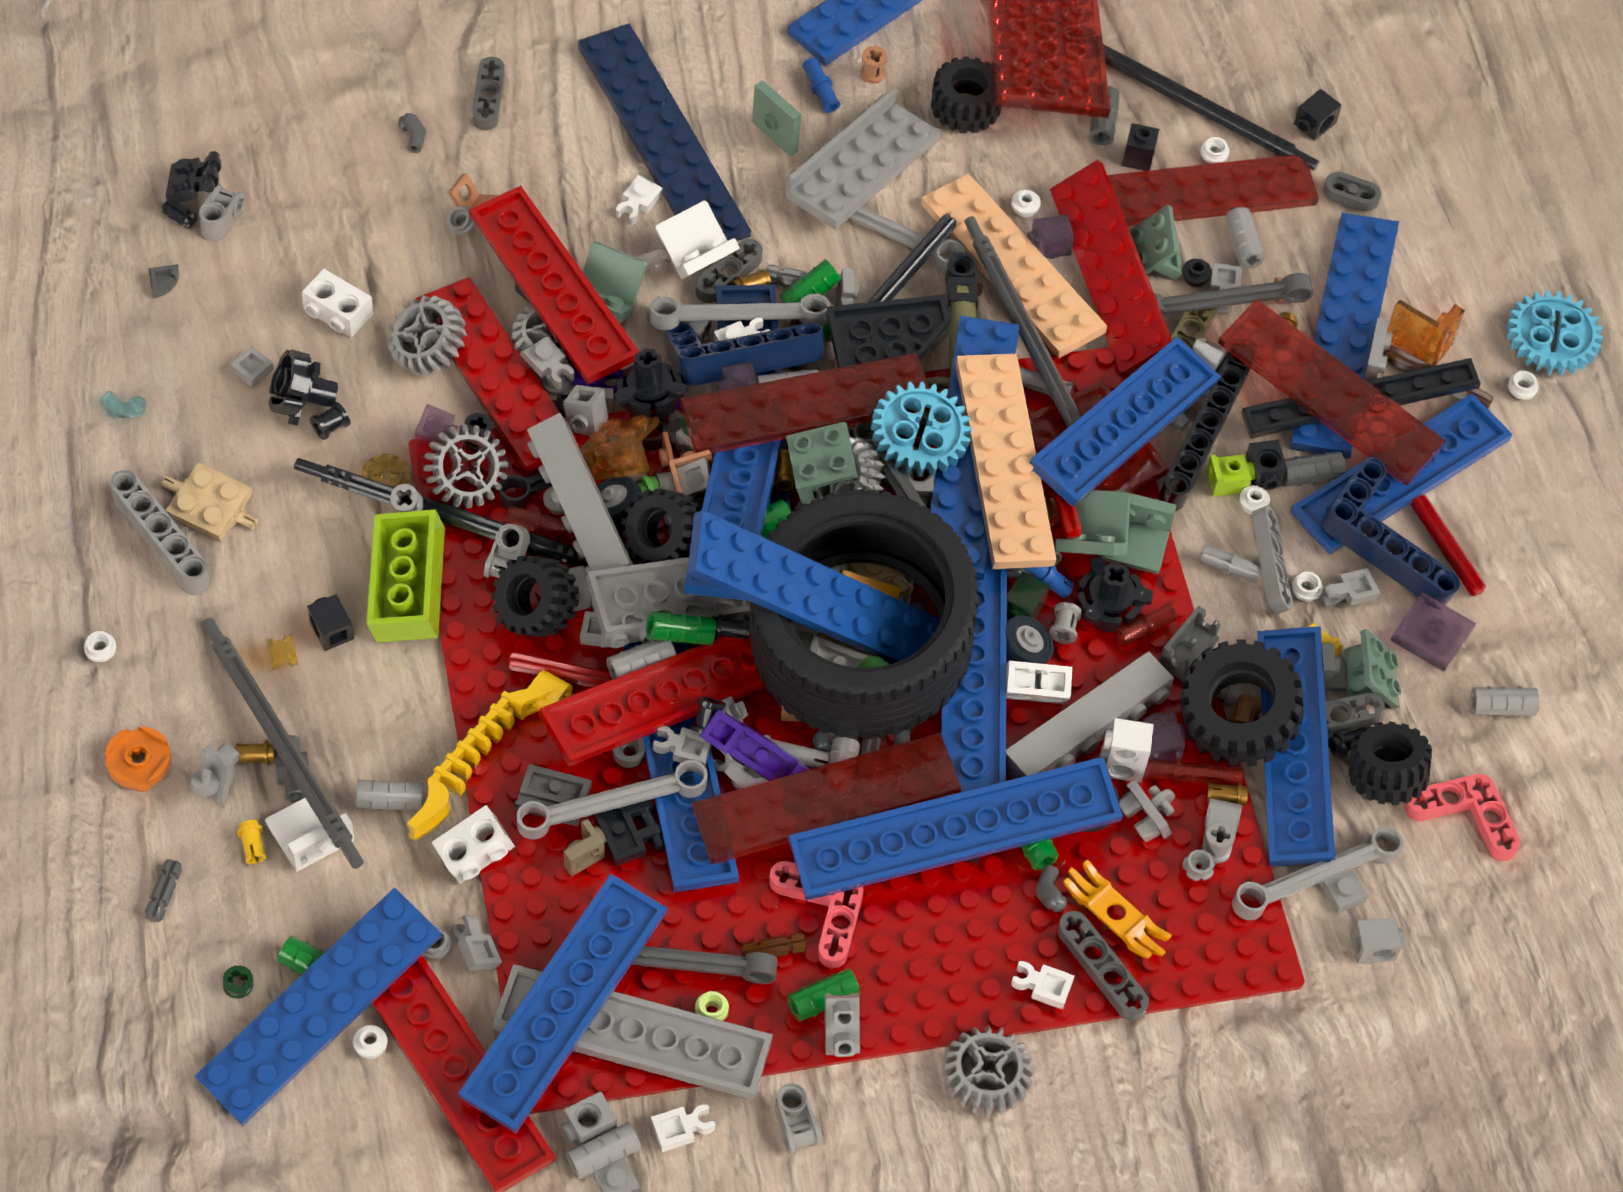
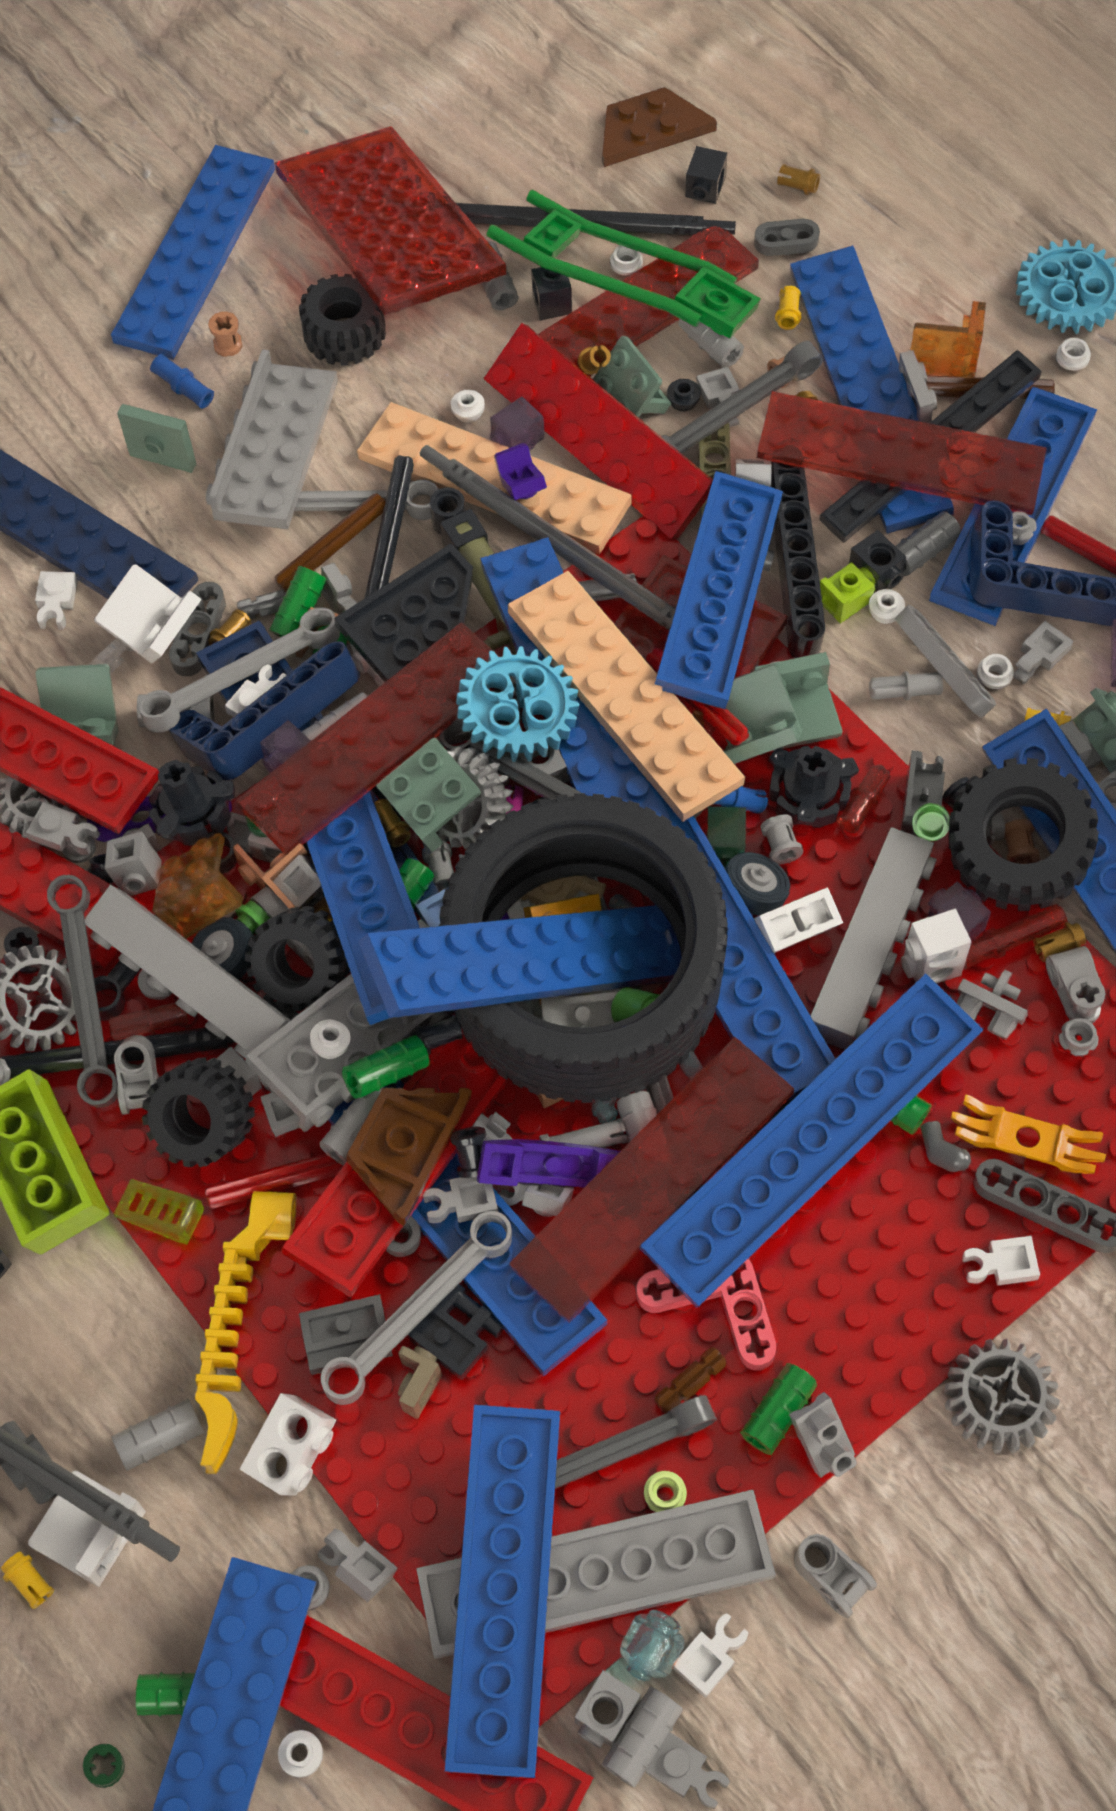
camera: 20 degrees left, 5 degrees up
(481, 671) = (179, 1232): none -> clear neon green slope
(502, 475) = (83, 989): none -> dark grey piece
(644, 1096) = (652, 1645): none -> clear light blue head
(649, 596) = (326, 1048): none -> white plate
(664, 684) = (404, 1142): none -> reddish brown wing
(867, 253) = (333, 539): none -> reddish brown axle
(1029, 268) = (519, 473): none -> dark purple bracket
(1131, 212) = (592, 359): none -> pearl gold pin
(1178, 660) = (931, 822): none -> bright green plate
(1256, 209) = (706, 298): none -> green plate
(1299, 55) = (650, 124): none -> reddish brown wing
(1315, 250) = (788, 314): none -> yellow pin
(1389, 496) = (1022, 534): none -> light grey plate
(1396, 156) = (800, 179): none -> pearl gold pin

